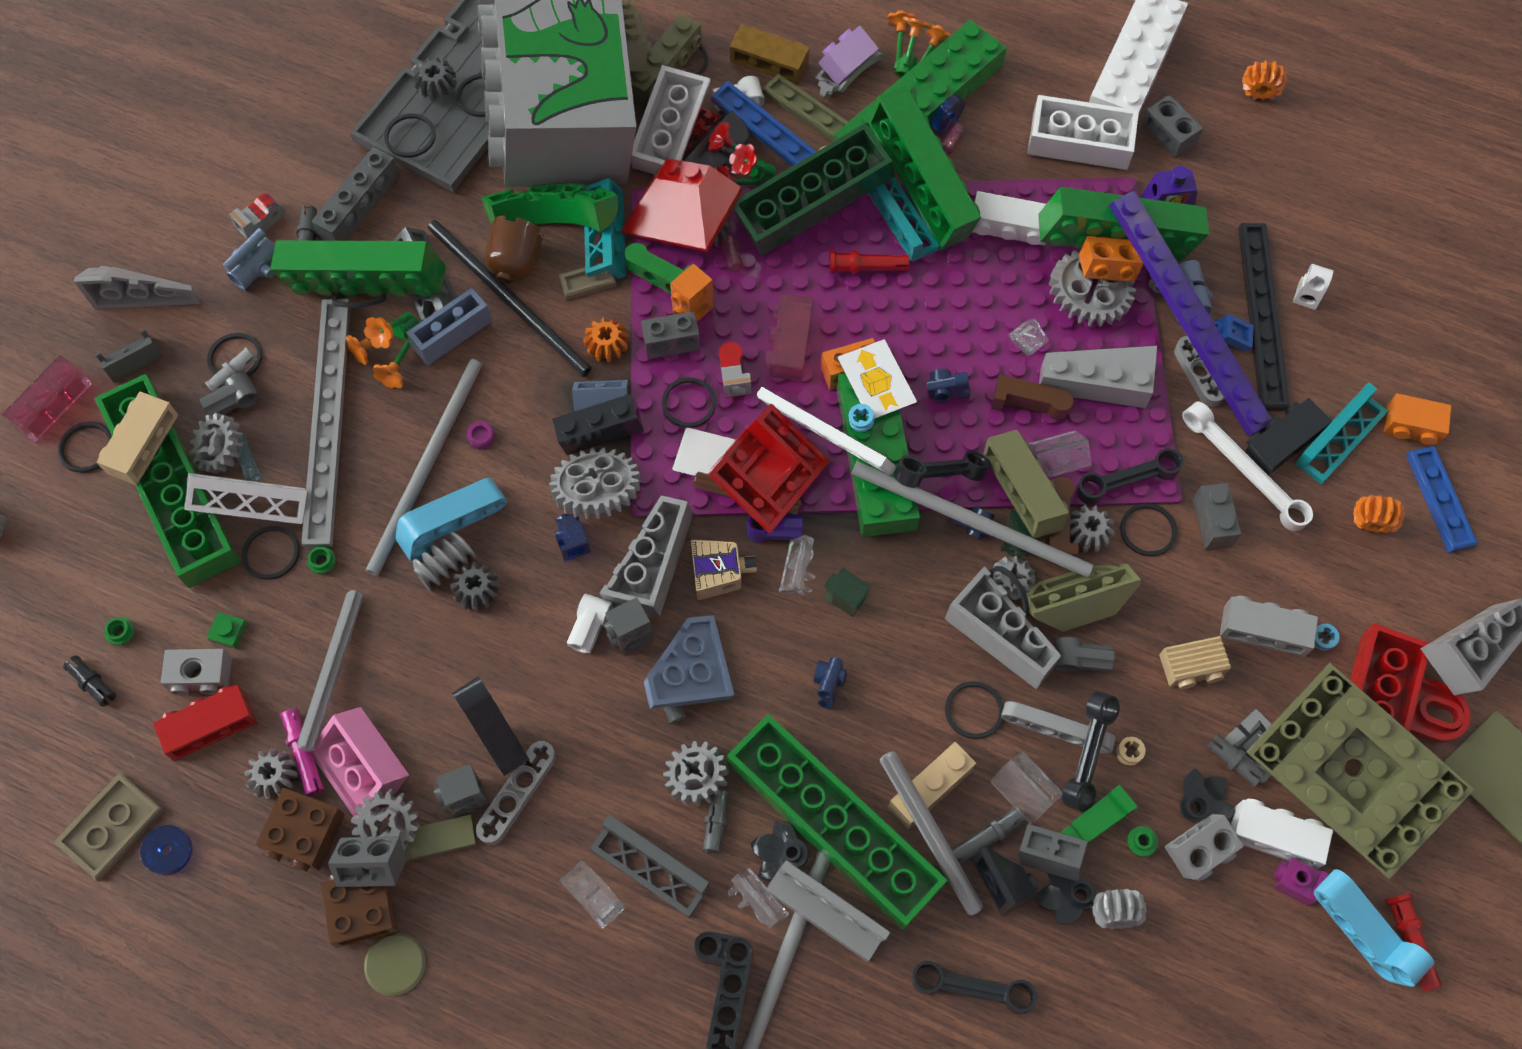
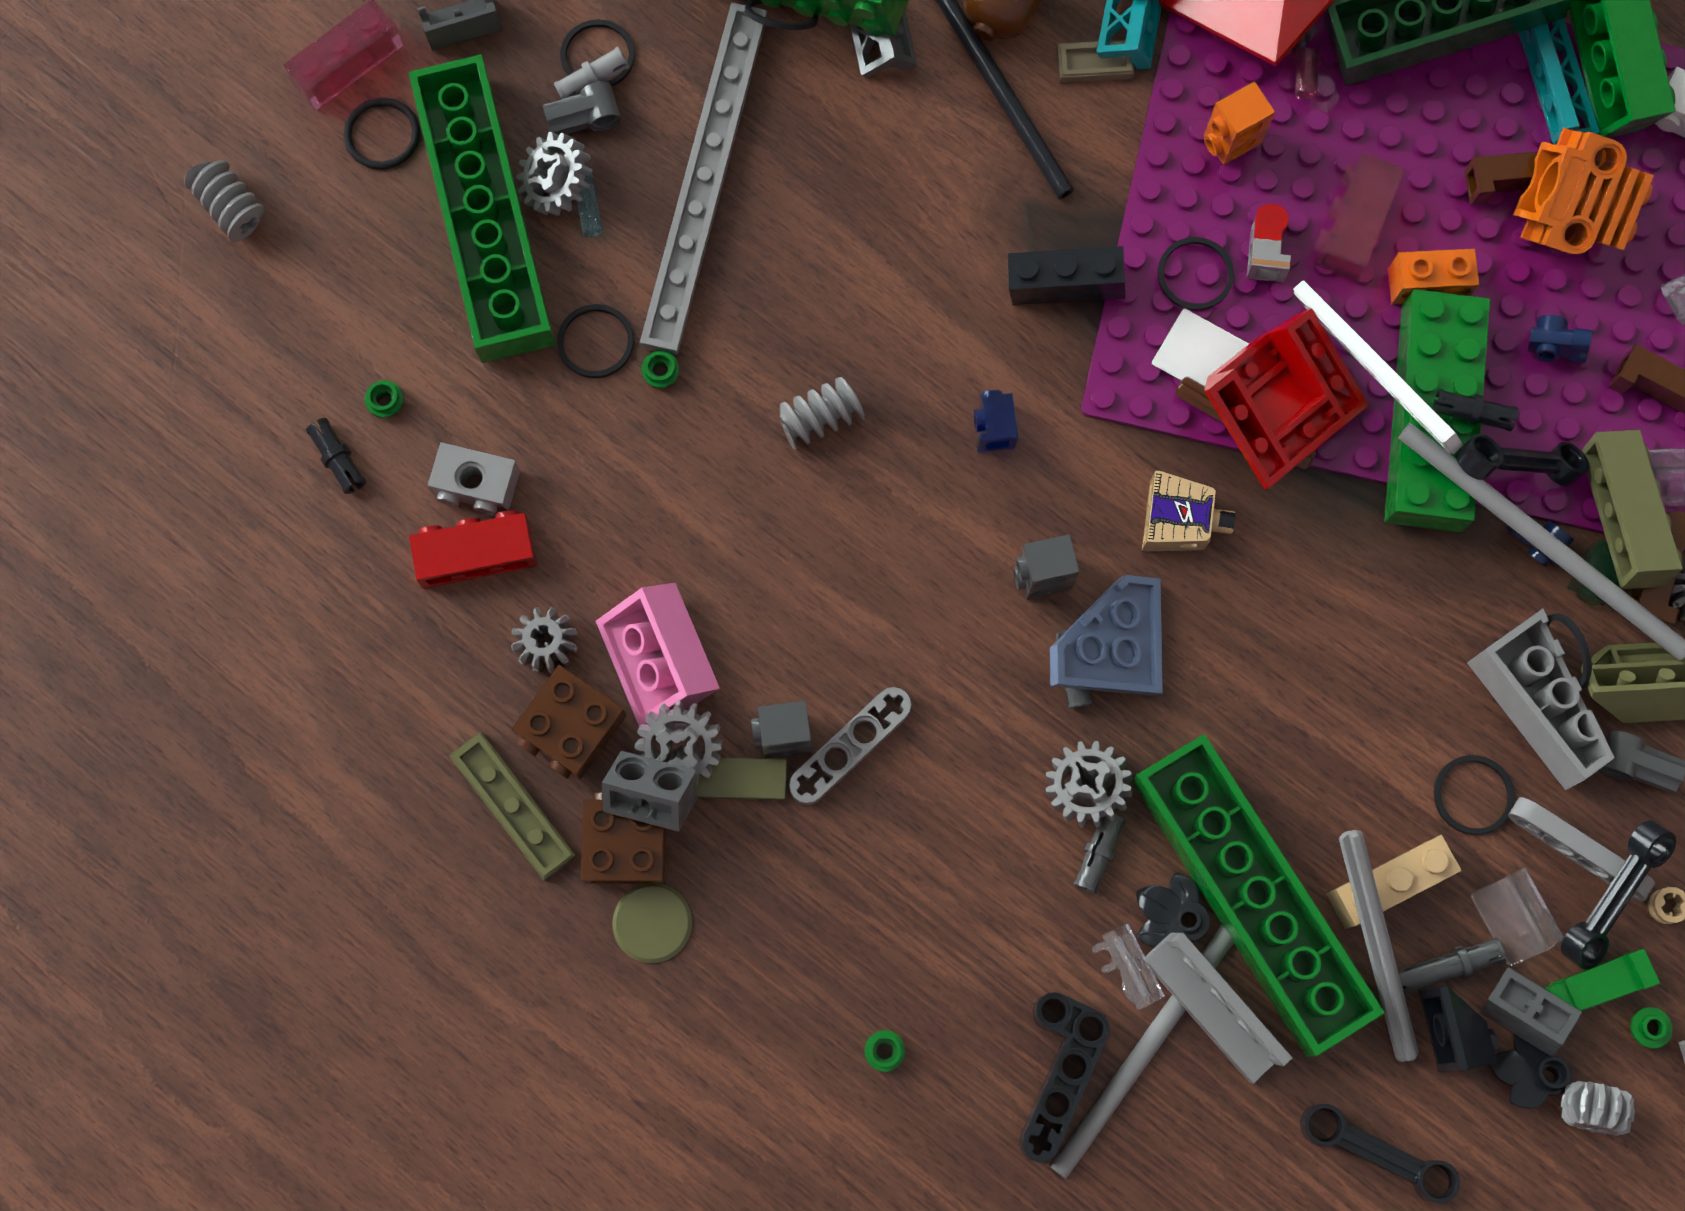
camera: 15 degrees right, 10 degrees up
(108, 826) = (329, 652): dark tan tile -> none
(137, 438) = (457, 145): tan brick -> none
(154, 843) = (382, 689): clear blue piece -> none
(226, 630) = (521, 433): green plate -> none
(240, 487) = (586, 249): white fence -> none
(271, 904) = (512, 806): none -> olive tile
(304, 760) = (586, 607): dark pink pin -> none
(330, 671) = (645, 523): light grey axle -> none
(379, 335) = (803, 77): orange plant -> none
(424, 466) = (820, 274): light grey piece -> none
(446, 515) = (837, 353): medium azure beam -> none
(449, 326) = (896, 84): sand blue brick -> none
(476, 596) = (854, 446): dark grey gear -> none
(480, 435) = (903, 248): magenta tile -> none
(490, 726) = (843, 658): black beam -> none
(581, 1008) = (871, 1050): none -> green plate
(589, 623) = (998, 539): white piece -> none
(592, 894) = (920, 903): clear slope -> none
(595, 483) = (1044, 357): light grey gear -> none
(596, 392) = (1075, 230): sand blue panel -> none
(606, 340) = (1097, 166): orange gear -> none
(651, 267) = (1193, 69): green leg -> none
(651, 557) = (1097, 481): light grey wedge -> none
(656, 856) = (1011, 876): dark grey fence -> none
(670, 335) = (1194, 172): dark grey brick -> none
(787, 529) = (1290, 488): dark purple piece -> none
(794, 573) = (1286, 539): clear plate -> none
(829, 676) = (1294, 701): dark blue plate -> none
(846, 591) = (1345, 592): clear green brick -> none
(855, 262) = (1475, 128): red pin -> none
(861, 409) = (1434, 350): medium azure bush -> none
(877, 378) = (1465, 311): white sticker -> none
(892, 283) = (1498, 174): none -> reddish brown leg
(900, 442) = (1475, 410): none -> black pin
(938, 285) = (1582, 194): none -> orange piece
(1022, 570) = (1590, 624): light grey gear -> none

